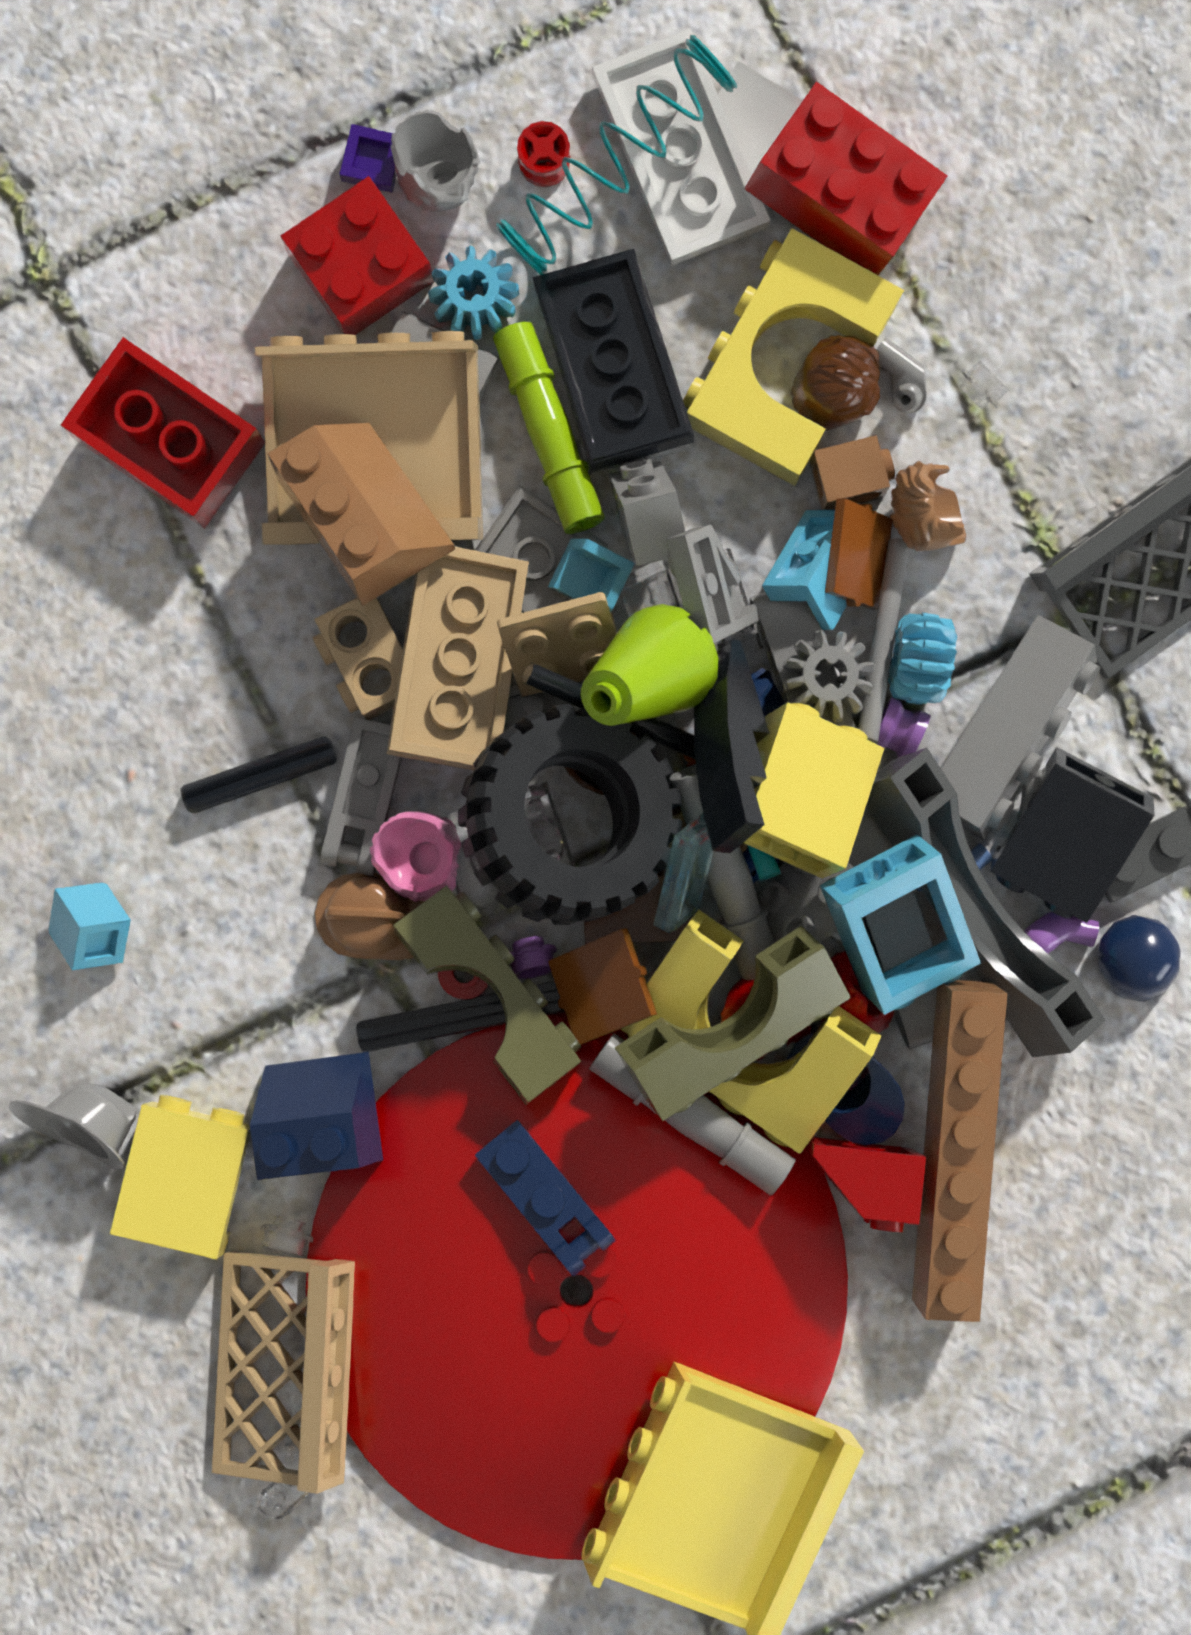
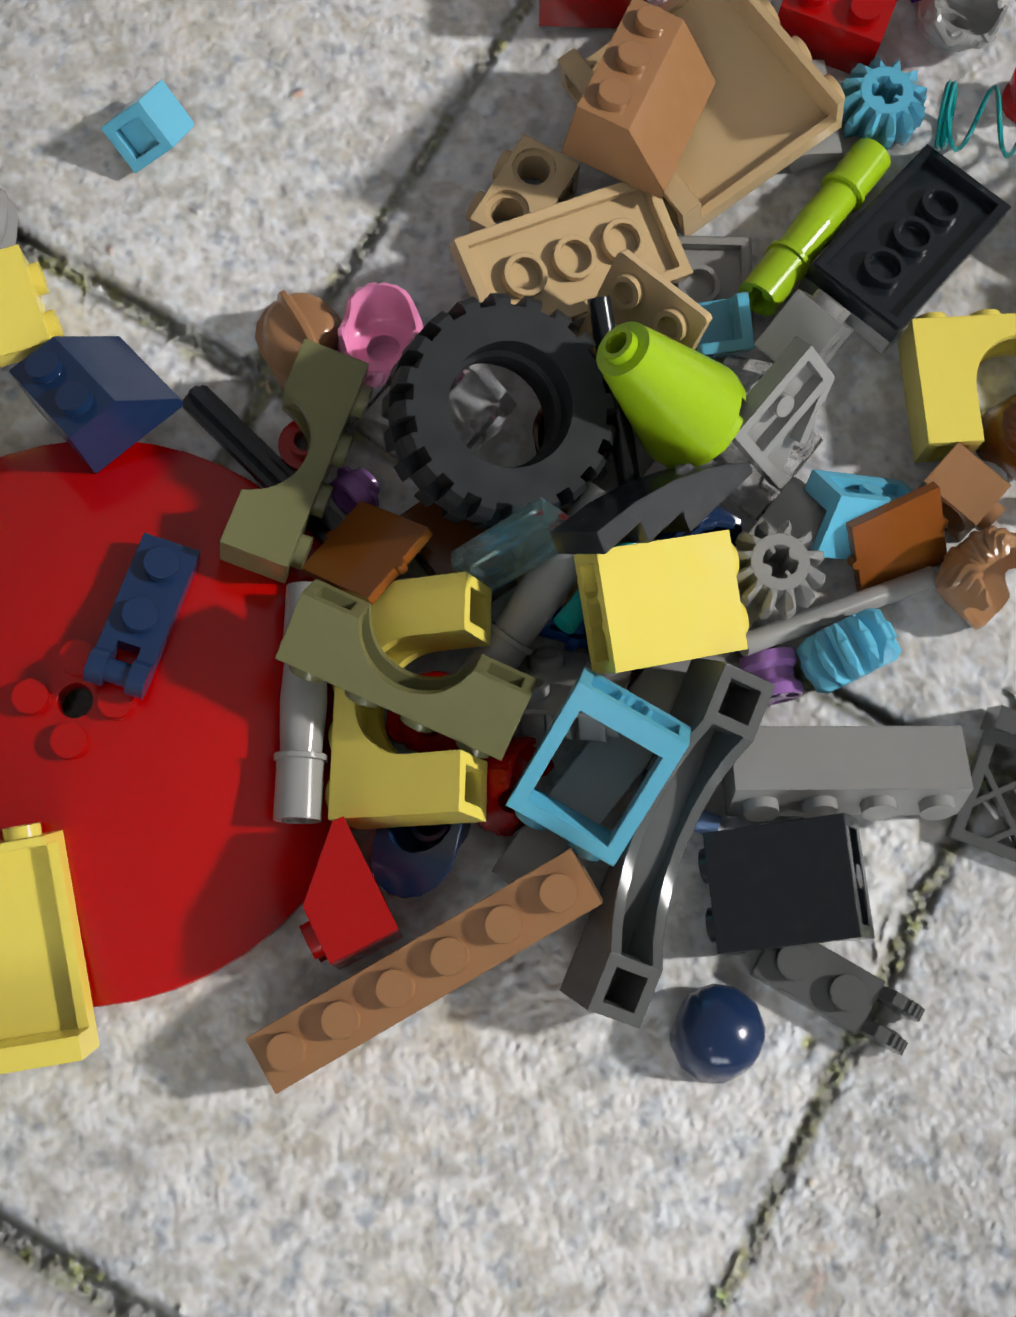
camera: 50 degrees right, 10 degrees down
(258, 774) = (365, 183): black axle -> none
(361, 795) = (416, 264): light grey plate -> none
(1053, 930) = (691, 935): medium lavender arm -> none

